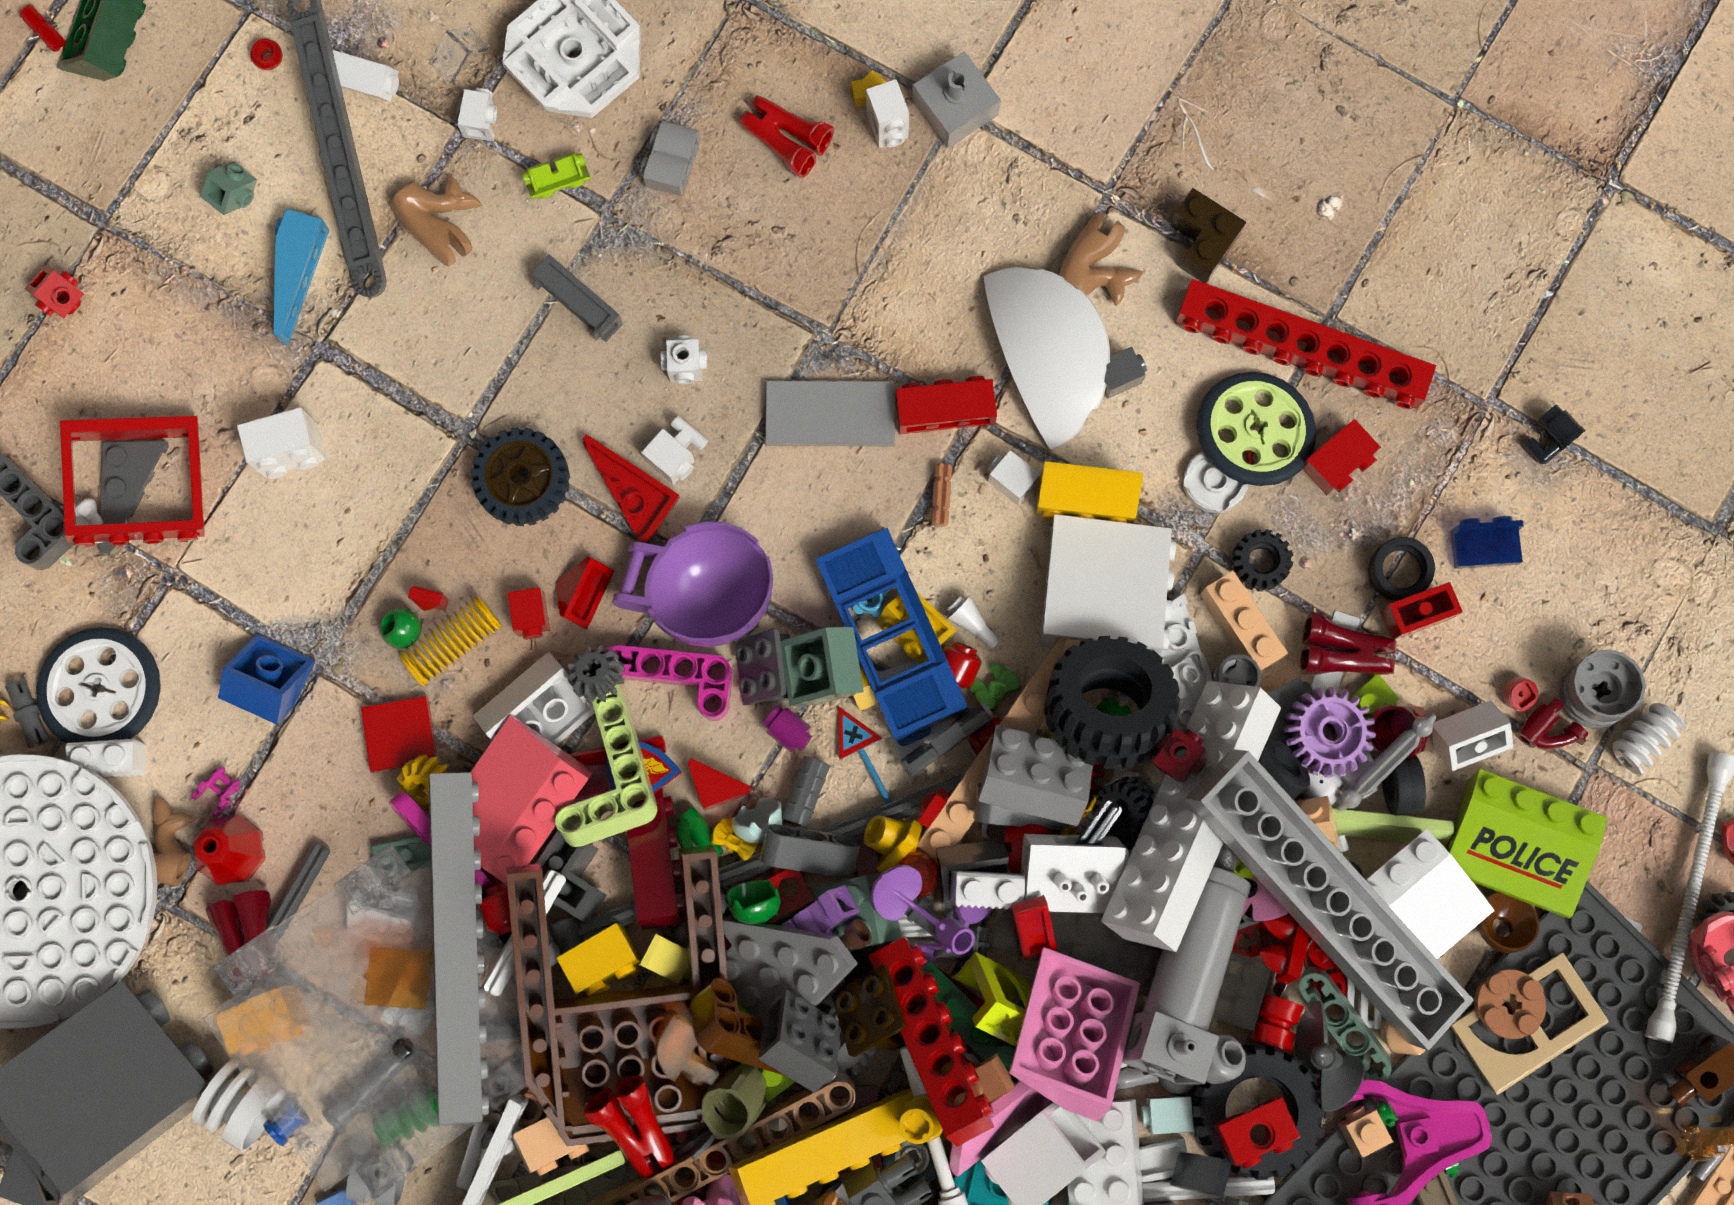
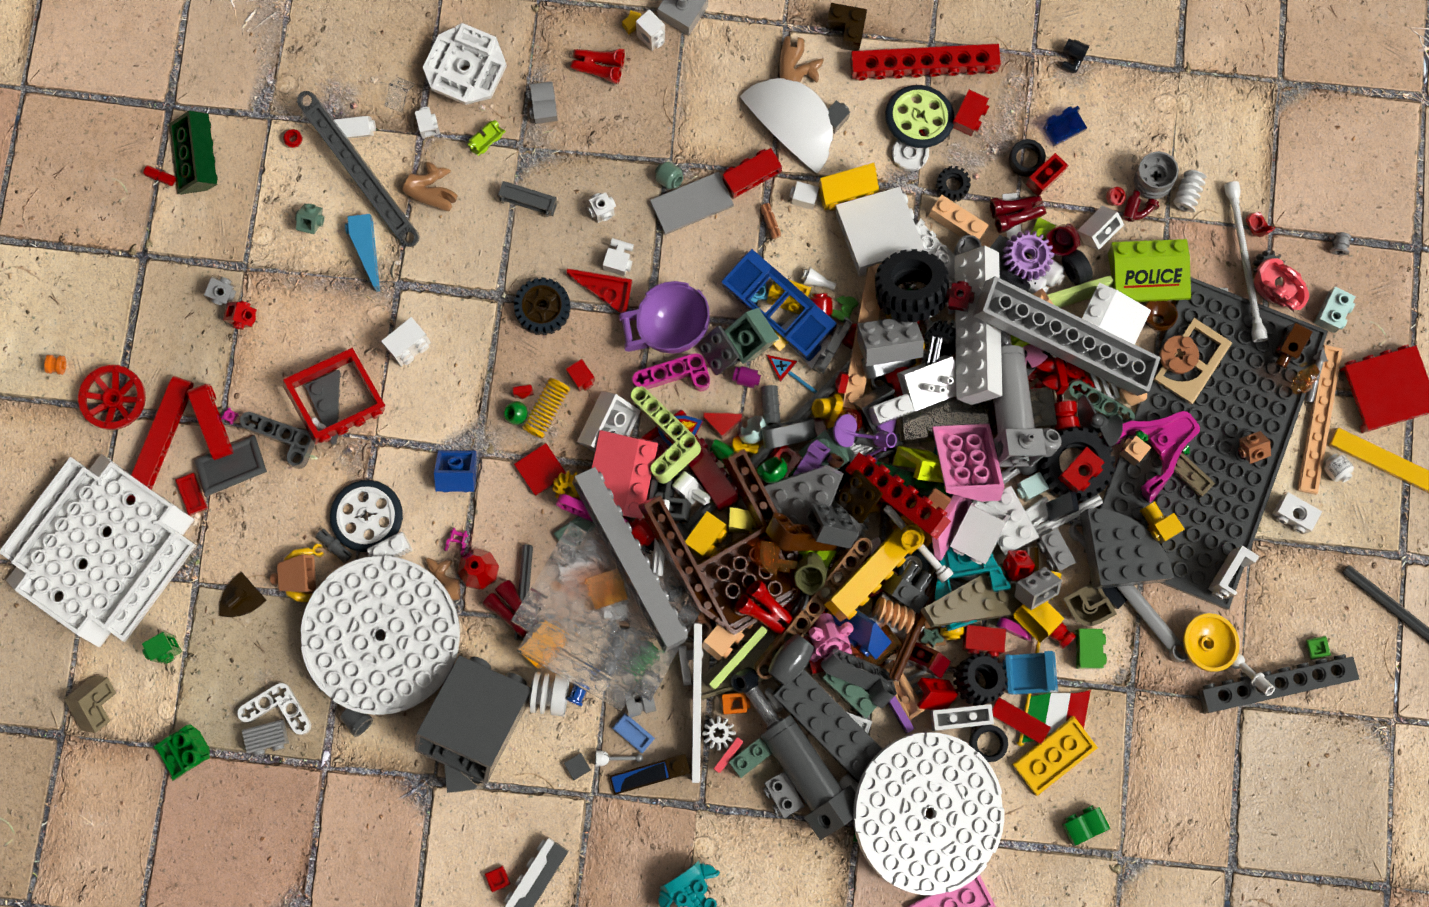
camera: 30 degrees left, 0 degrees up
(43, 241) = (213, 290): none -> light grey brick
(582, 590) = (603, 352): red slope -> none
(596, 673) = (639, 394): dark grey gear -> none
(612, 873) = (690, 489): none -> white beam
(813, 354) = (669, 175): none -> sand green head
(1033, 927) = (923, 418): red tile -> none
(1386, 762) = (1064, 258): light grey wheel -> none

